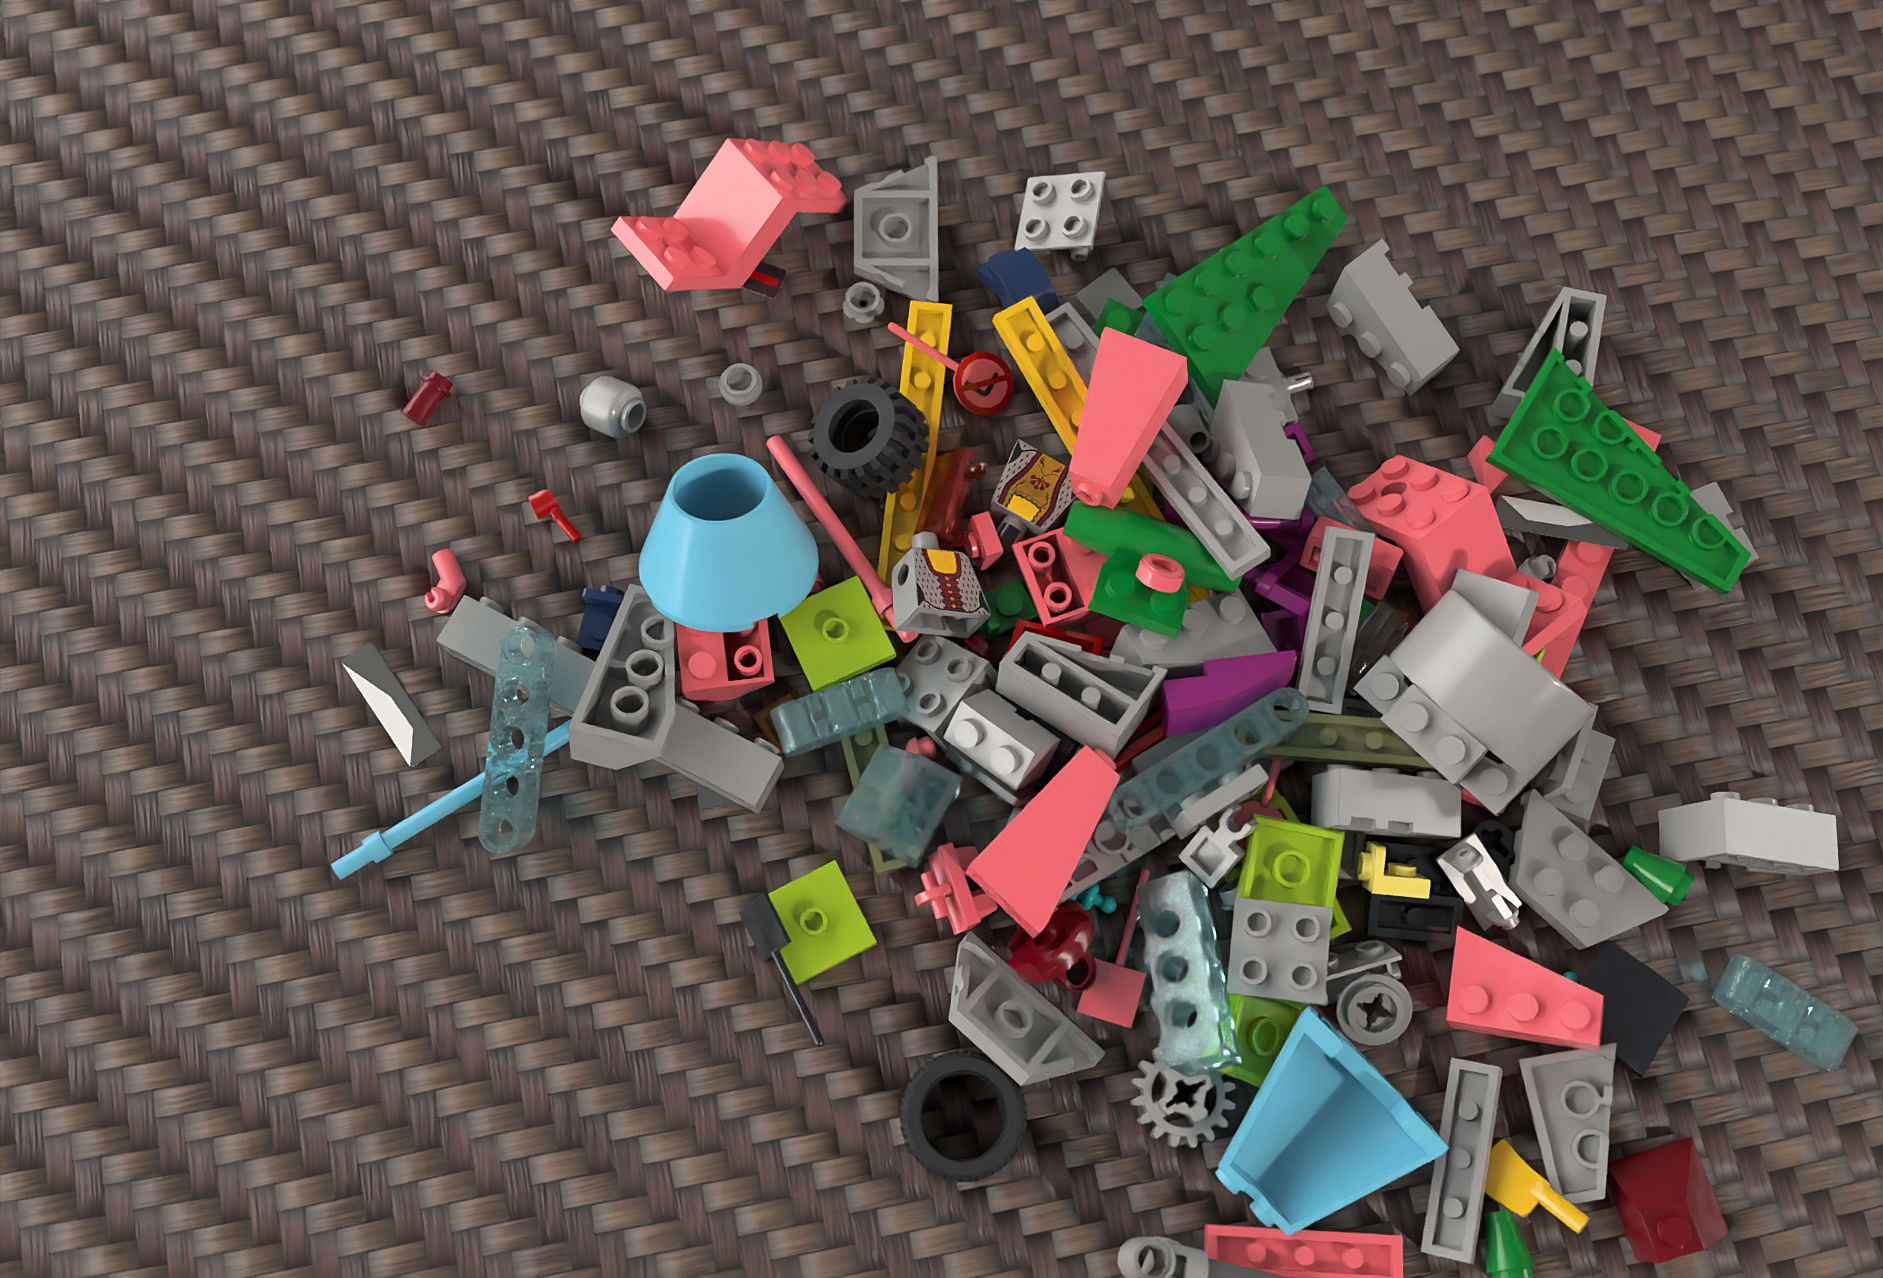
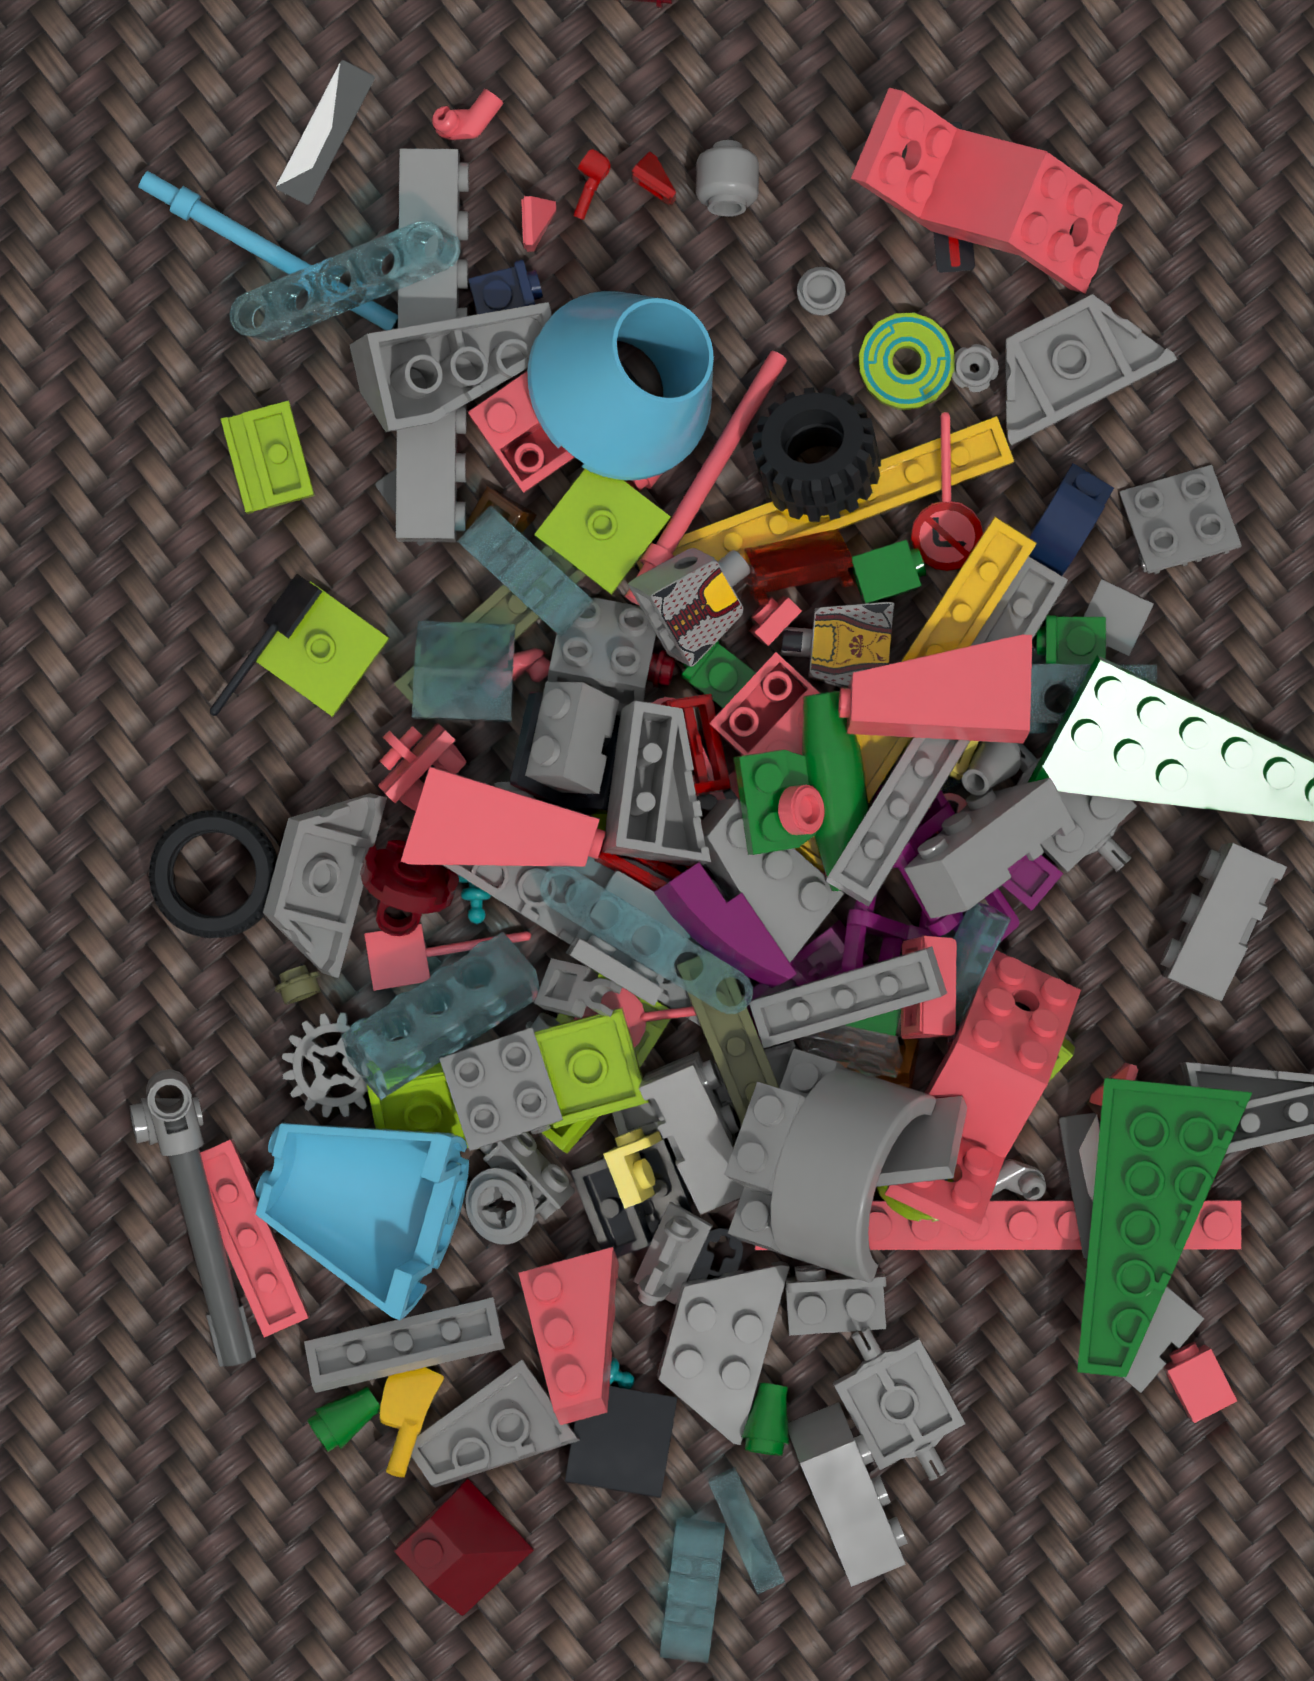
camera: 65 degrees right, 15 degrees up
(556, 569) = (535, 219): none -> coral slope
(583, 463) = (651, 176): none -> red slope
(627, 884) = (267, 457): none -> lime plate
(827, 327) = (914, 333): none -> lime tile
(991, 436) = (888, 572): none -> green brick
(1095, 1092) = (298, 984): none -> olive plate
(1684, 756) = (899, 1403): none -> light grey plate
(1746, 940) = (746, 1530): none -> clear light blue piece
(1765, 514) = (1198, 1381): none -> coral brick

